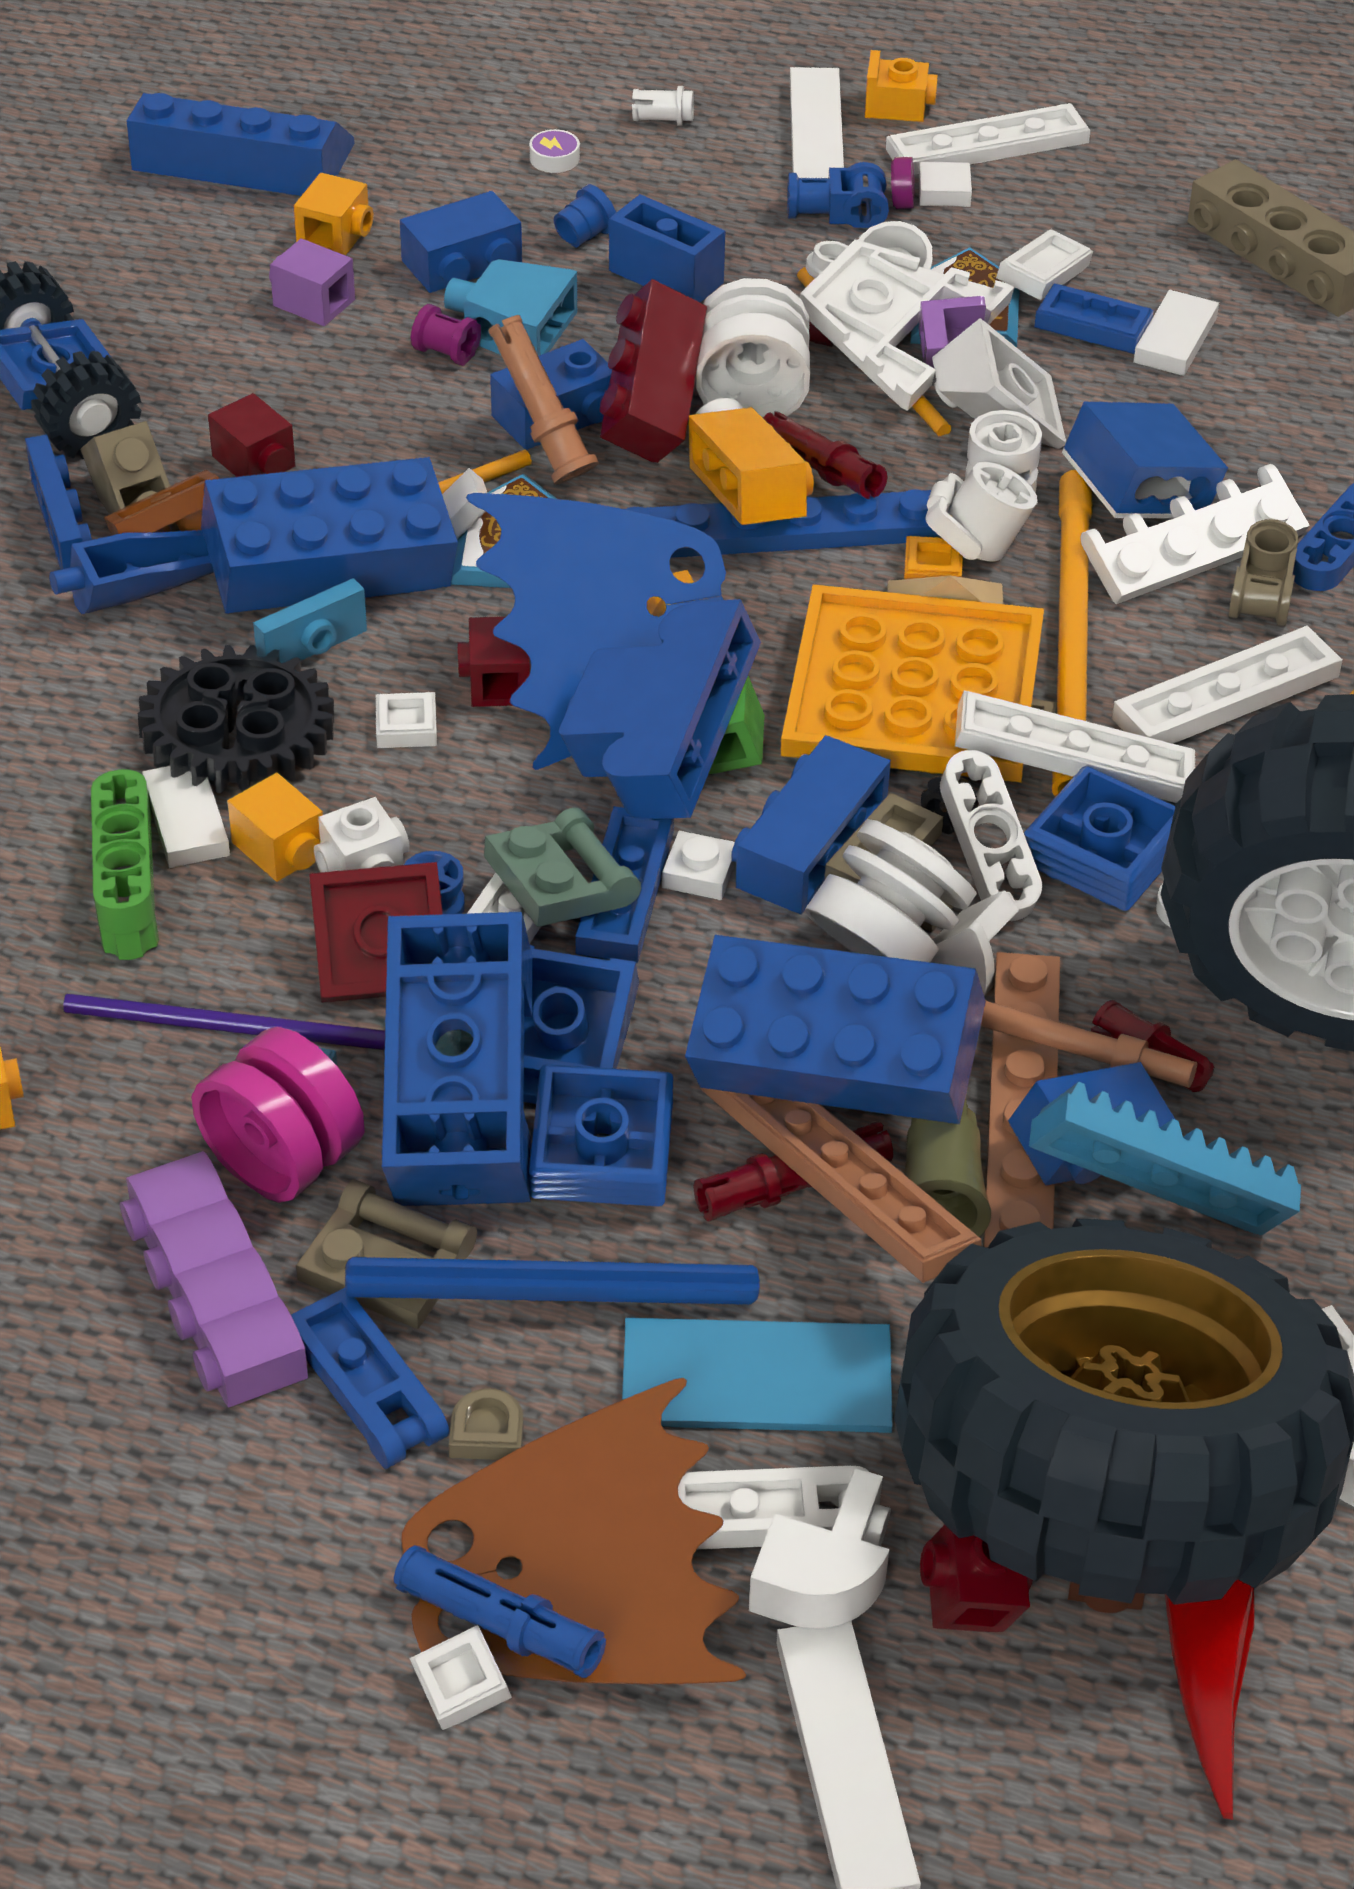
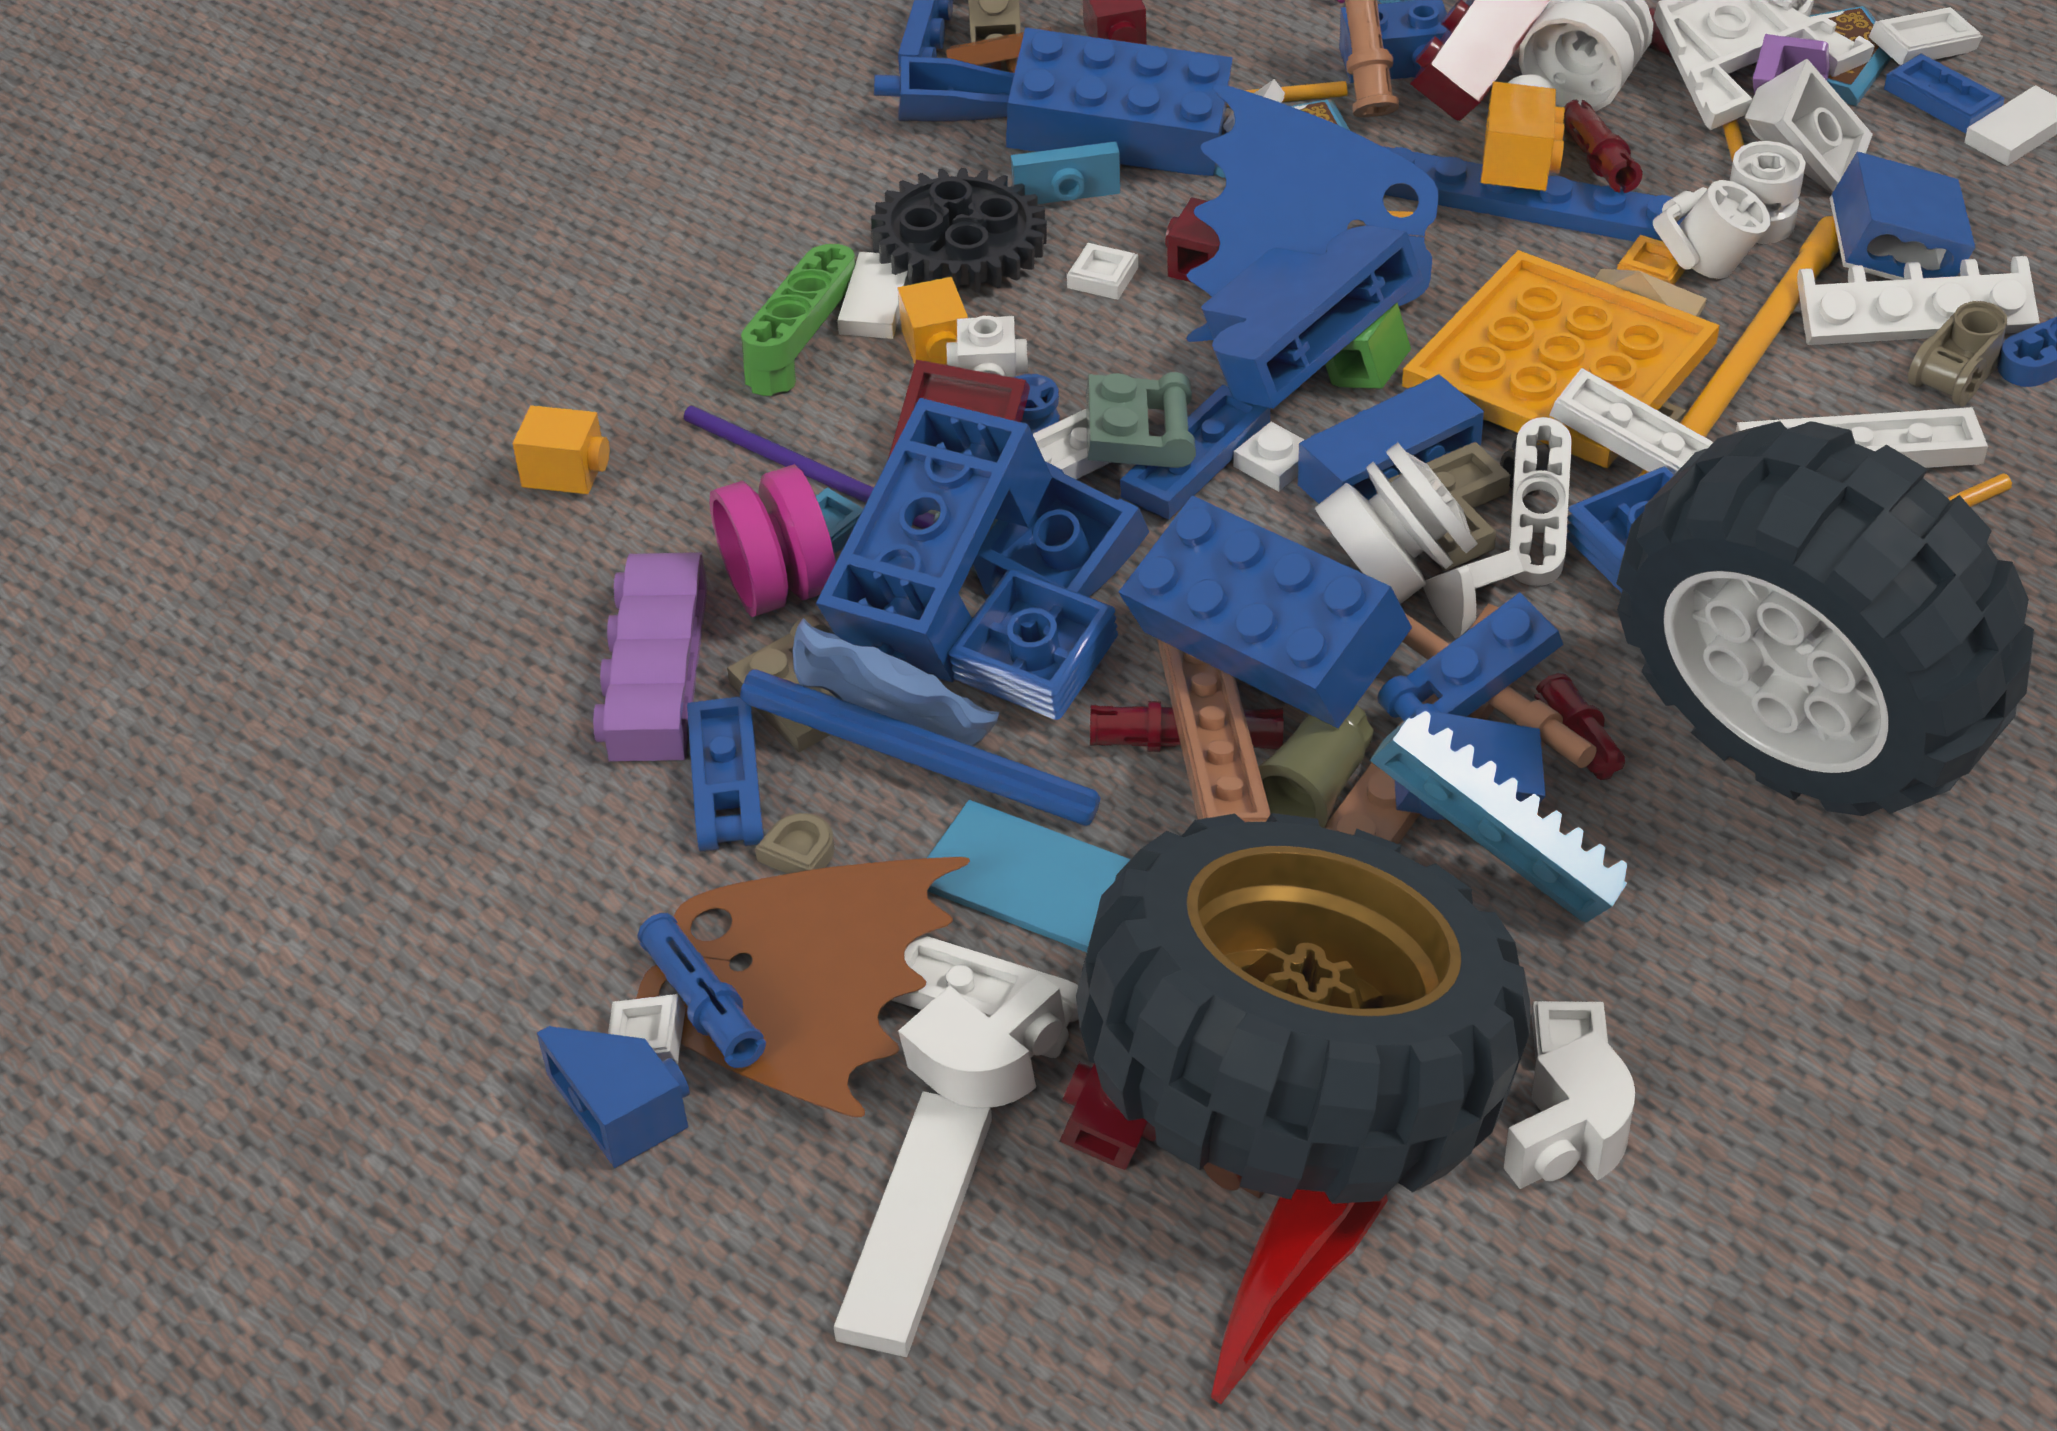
camera: 30 degrees right, 0 degrees up
(475, 1746) = (616, 1089): none -> blue slope
(491, 1228) = (886, 686): none -> medium blue piece
(1046, 1020) = (1475, 663): none -> blue plate

